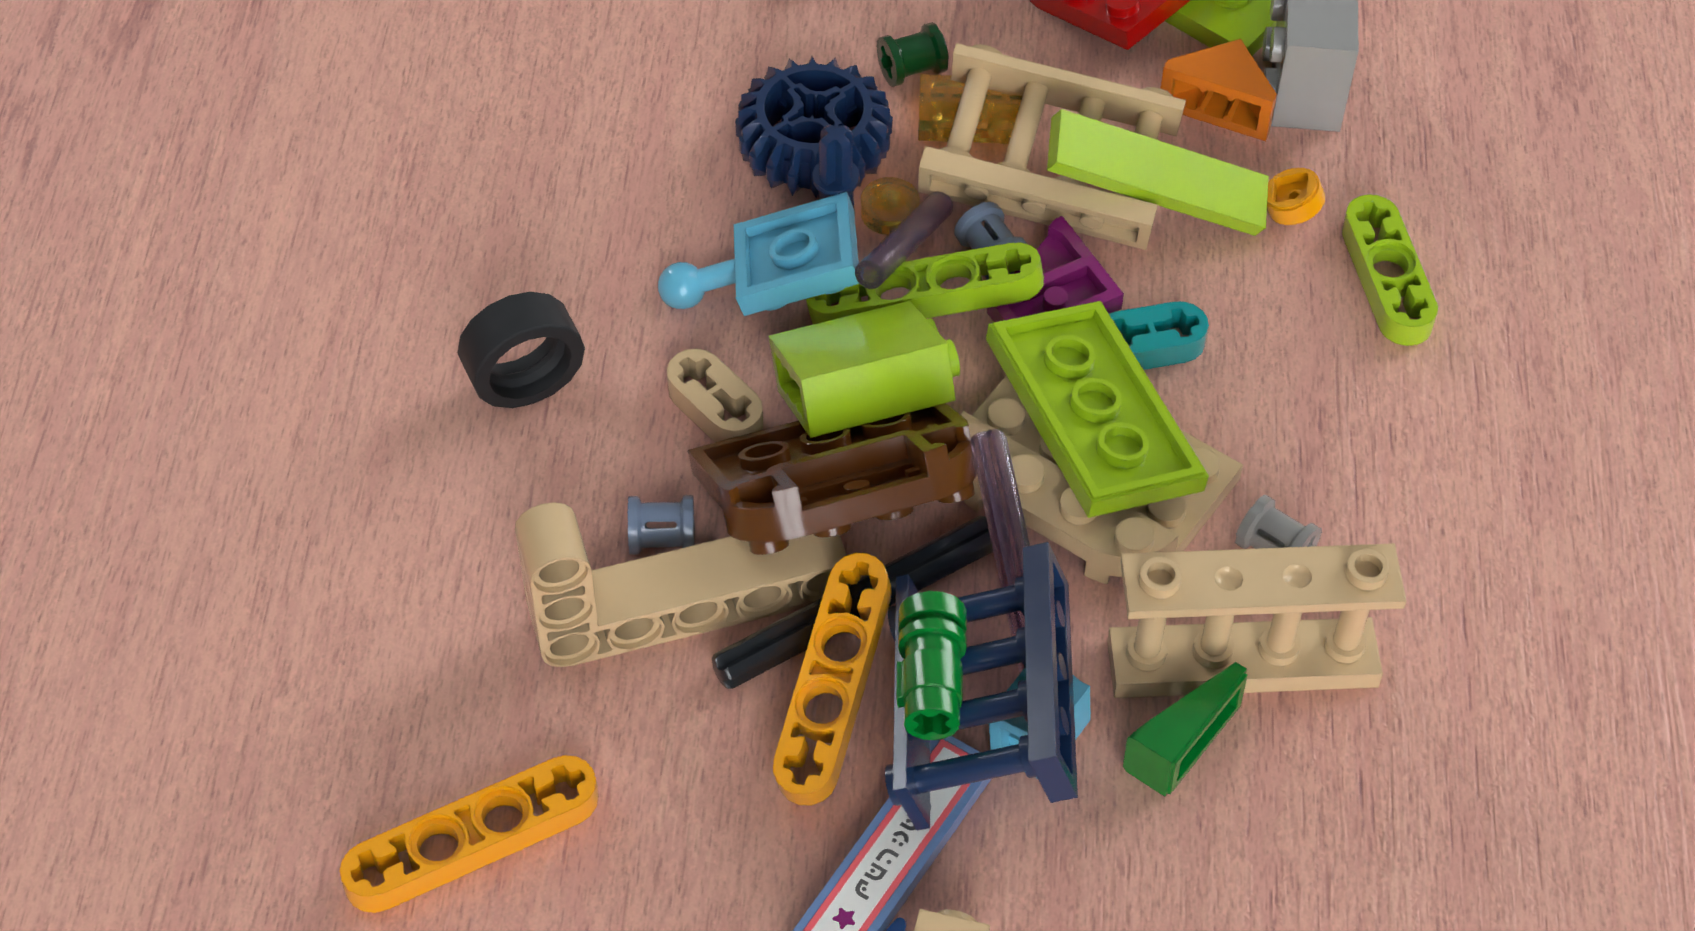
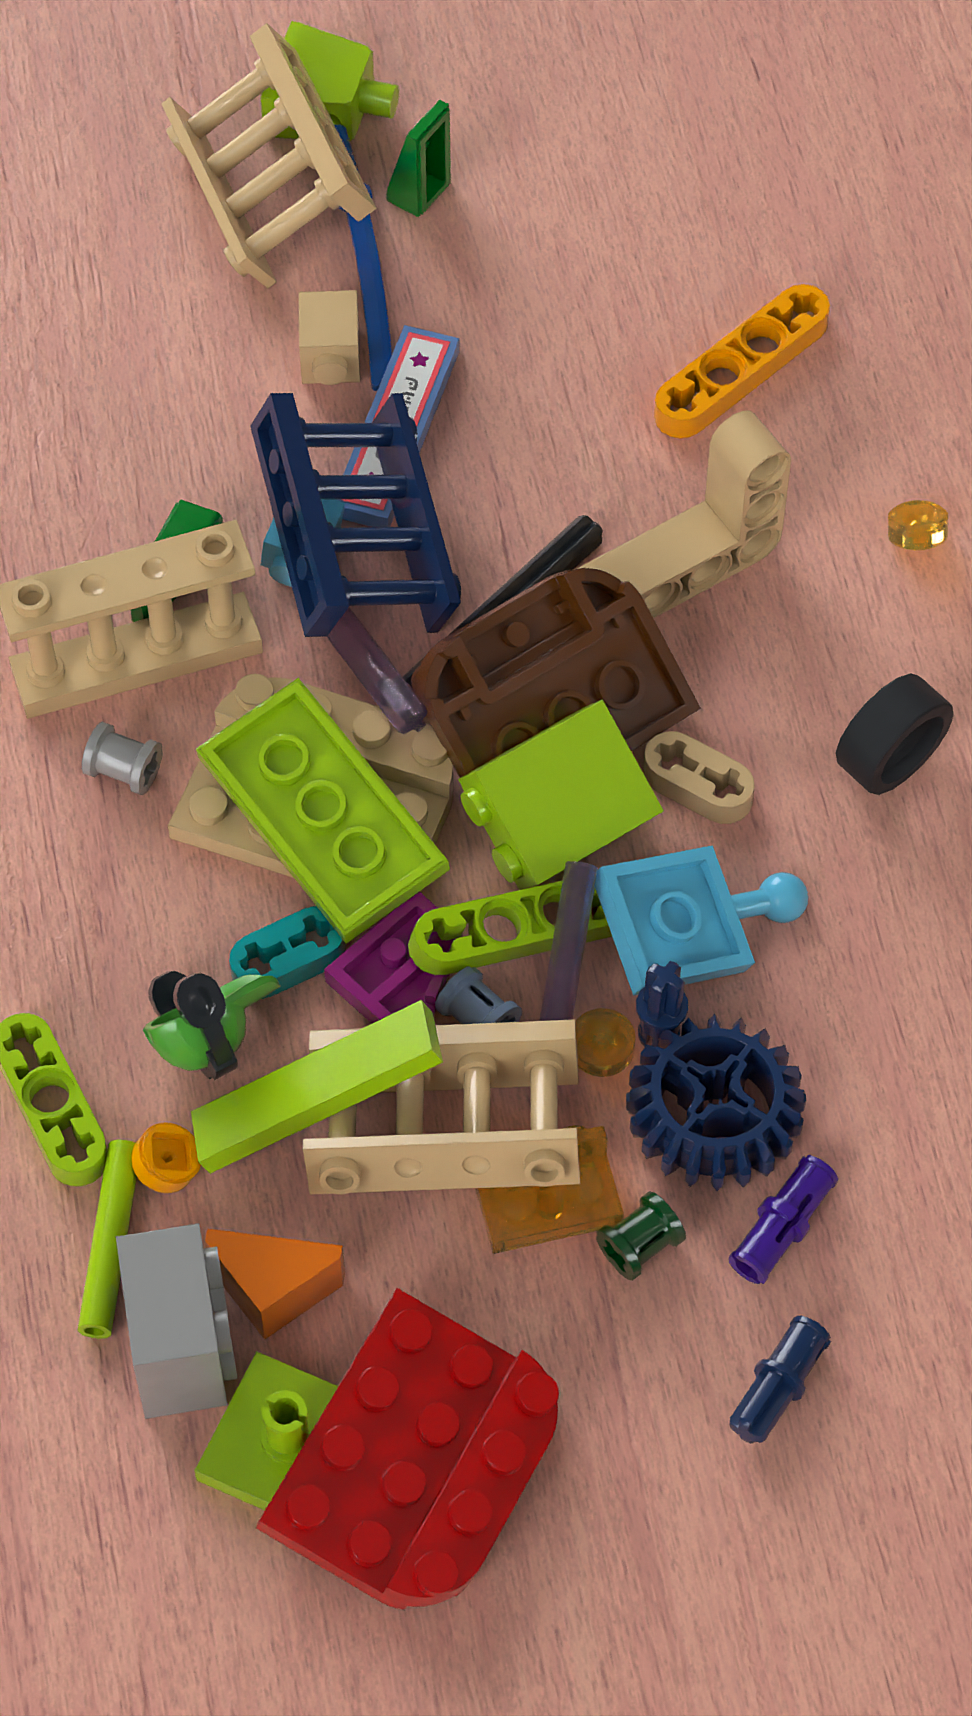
camera: 165 degrees right, 5 degrees up
(380, 583) = (918, 525): none -> clear yellow tile
(643, 537) = (696, 629): sand blue bush -> none
(794, 43) = (783, 1219): none -> dark purple pin
(839, 678) = (487, 523): light orange beam -> none
(931, 675) = (399, 484): green axle -> none
(1242, 265) = (200, 1021): none -> cap
(1351, 158) = (111, 1221): none -> lime piece

